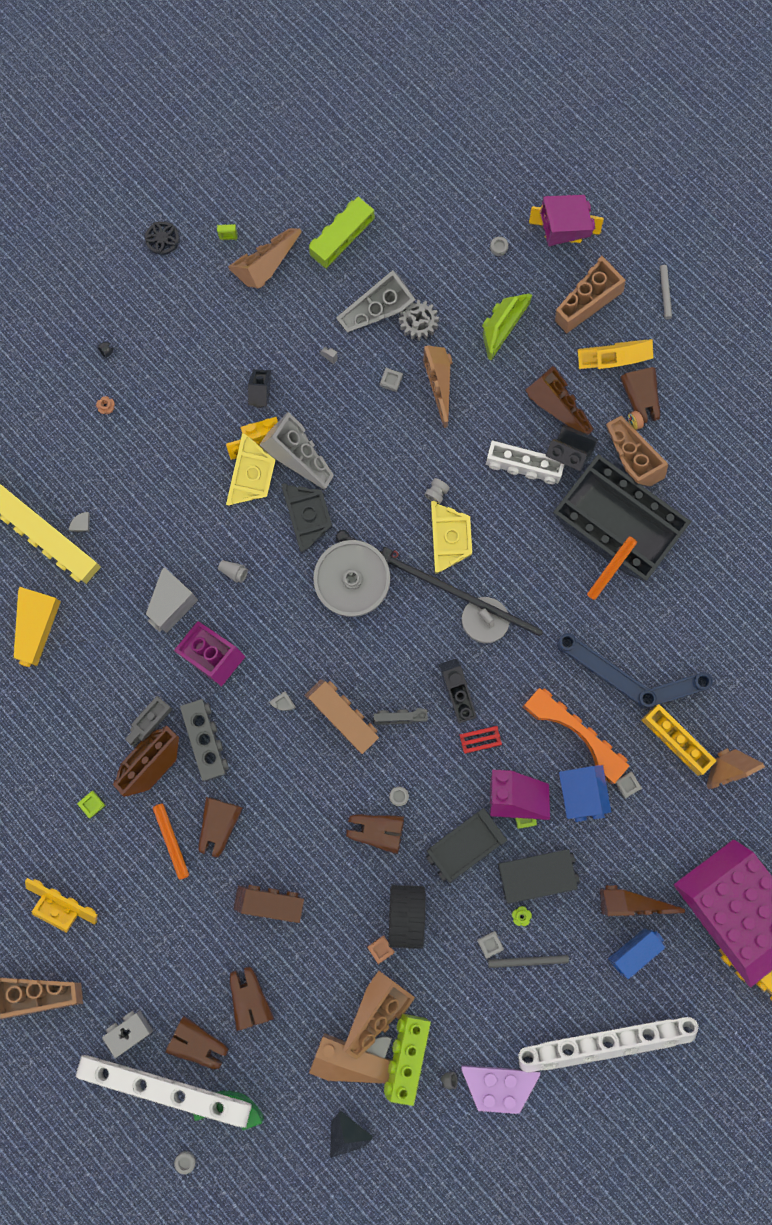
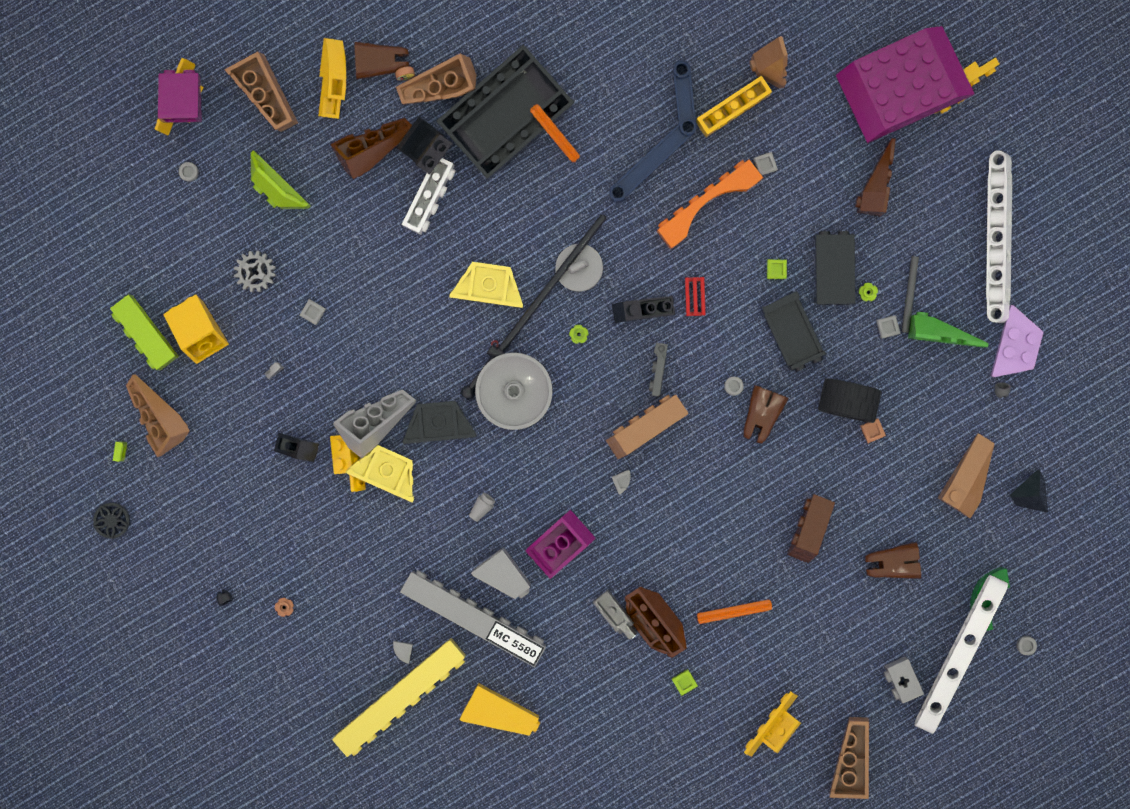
camera: 80 degrees left, 10 degrees up
(122, 582) = (472, 618): none -> light grey brick
(190, 713) = (674, 564): dark grey brick -> none
(196, 1045) = (925, 618): reddish brown piece -> none
(217, 824) = (727, 563): reddish brown piece -> none
(352, 276) = (195, 329): none -> yellow slope
(379, 1007) = (925, 442): medium nougat wedge -> none
(380, 1046) = (959, 448): light grey tile -> none
(381, 301) = (228, 303): light grey wedge -> none
(407, 1059) = (976, 425): lime brick -> none
(420, 627) = (578, 329): none -> lime plate
(437, 490) = (440, 289): light grey wheel -> none
(438, 370) = (316, 262): medium nougat wedge -> none
(497, 992) = (935, 330): none -> bright green wedge
(518, 796) = (757, 271): magenta slope -> none
(585, 793) = (766, 207): blue brick -> none
(637, 952) = (922, 191): blue brick -> none
(666, 292) = (272, 10): light grey bar -> none

